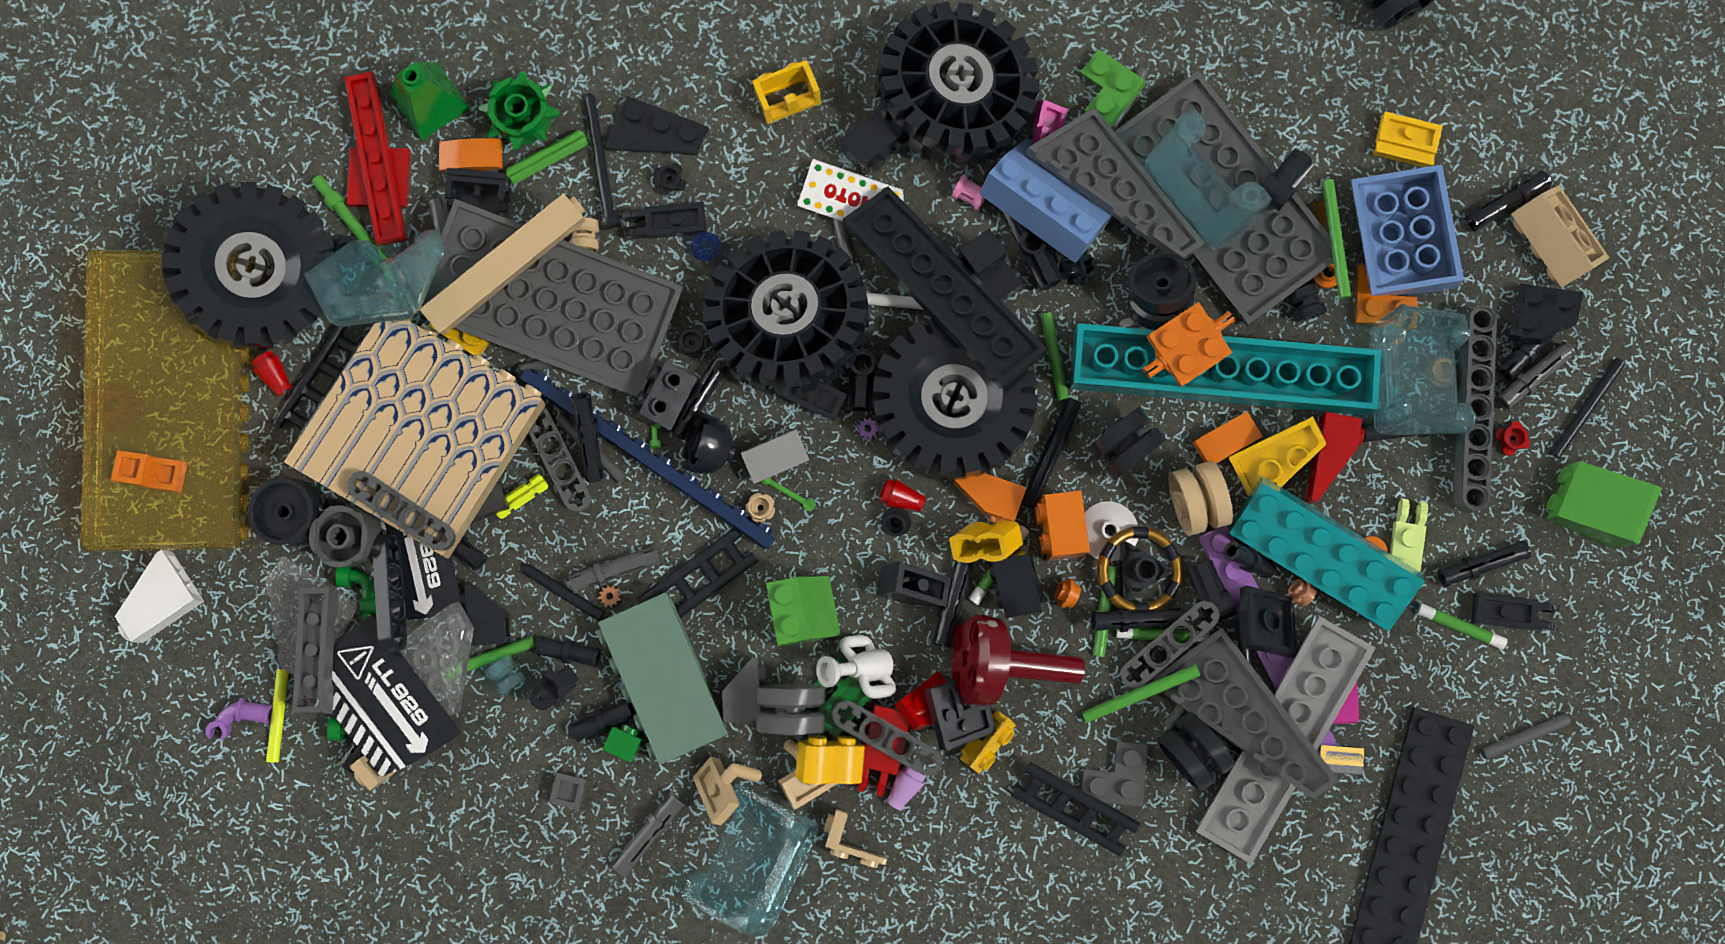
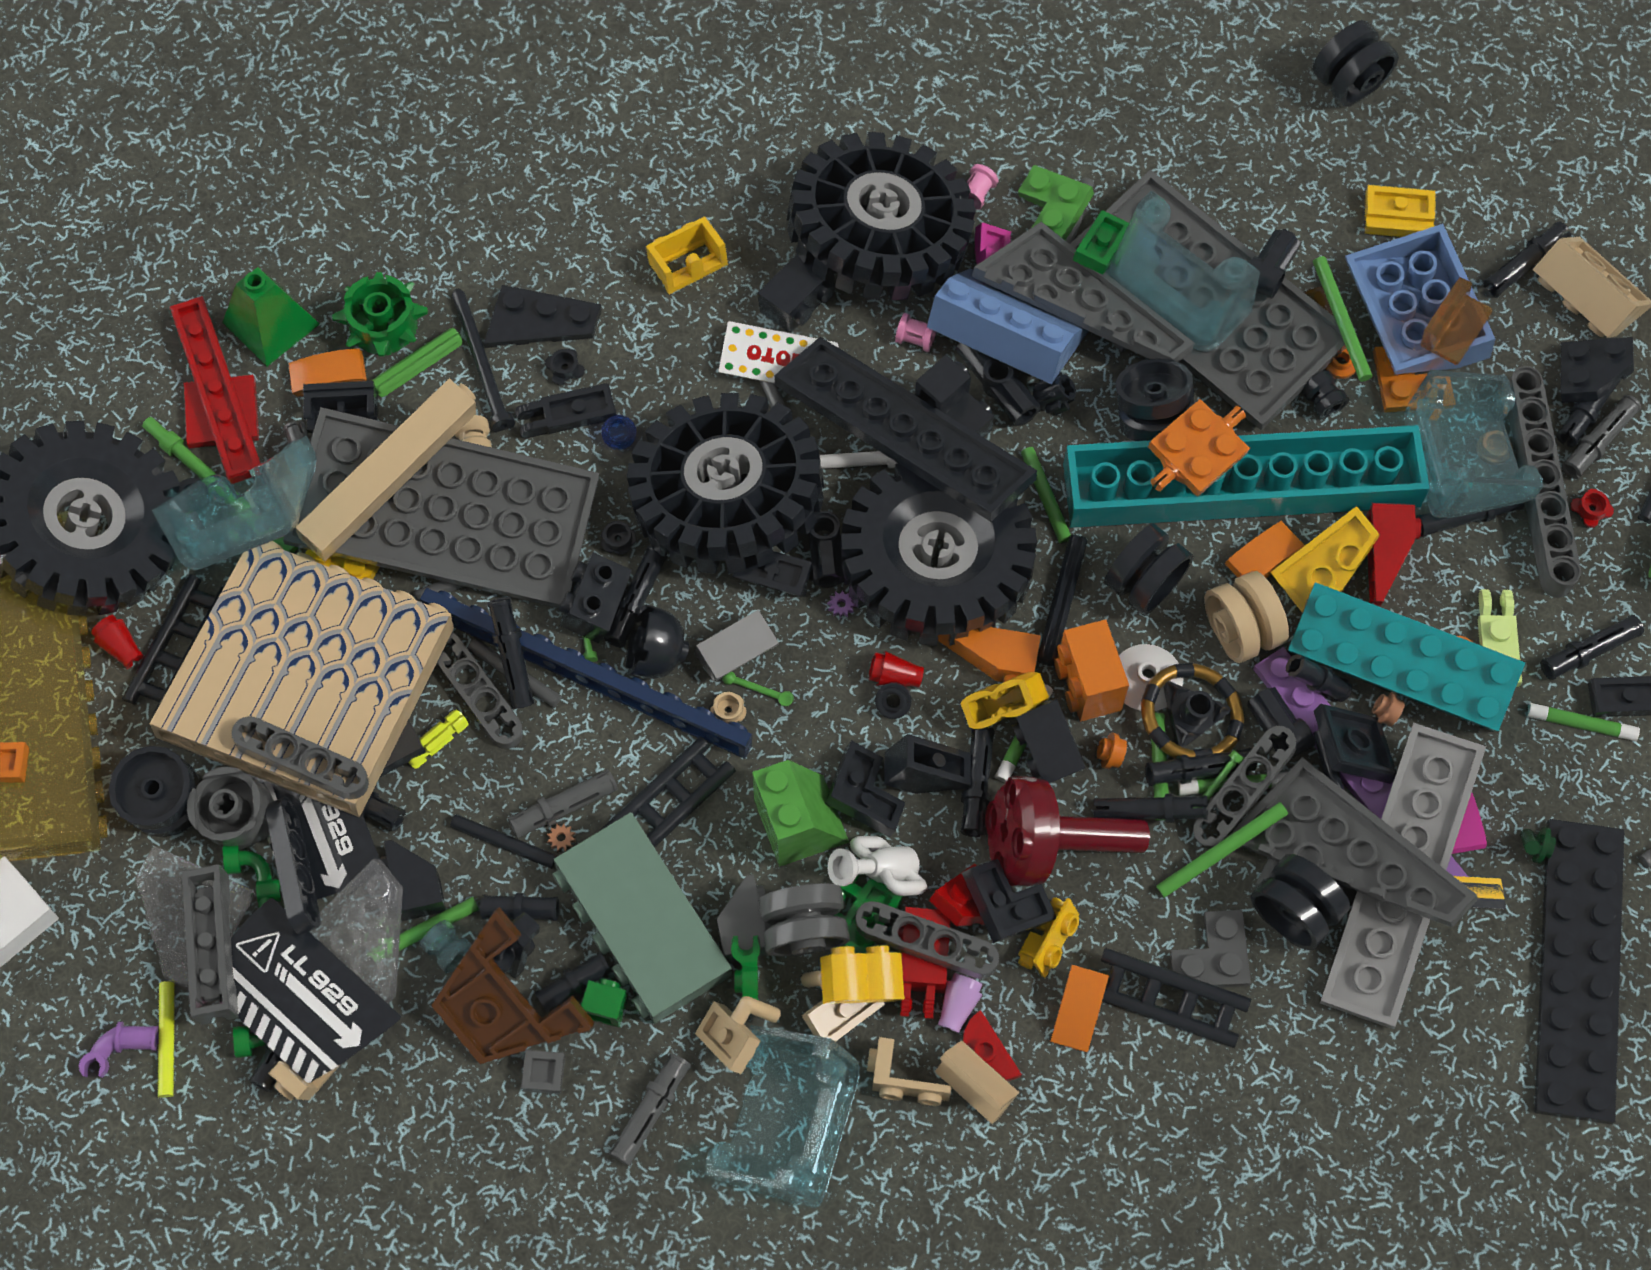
camera: 10 degrees left, 15 degrees down
(532, 740) = (490, 1011): none -> reddish brown wing
(740, 740) = (746, 979): none -> green plate
(851, 600) = (857, 796): none -> black plate
(909, 854) = (976, 1081): none -> tan panel
(921, 829) = (987, 1045): none -> red plate
(1001, 807) = (1079, 1008): none -> orange slope
(1048, 60) = (980, 182): none -> bright pink bush
(1089, 649) = (1152, 808): none -> black pin
(1143, 137) = (1101, 242): none -> green plate
(1167, 619) = (1235, 758): none -> bright green piece
(1400, 728) = (1538, 845): none -> dark green plate
(1433, 263) = (1455, 323): none -> clear orange panel

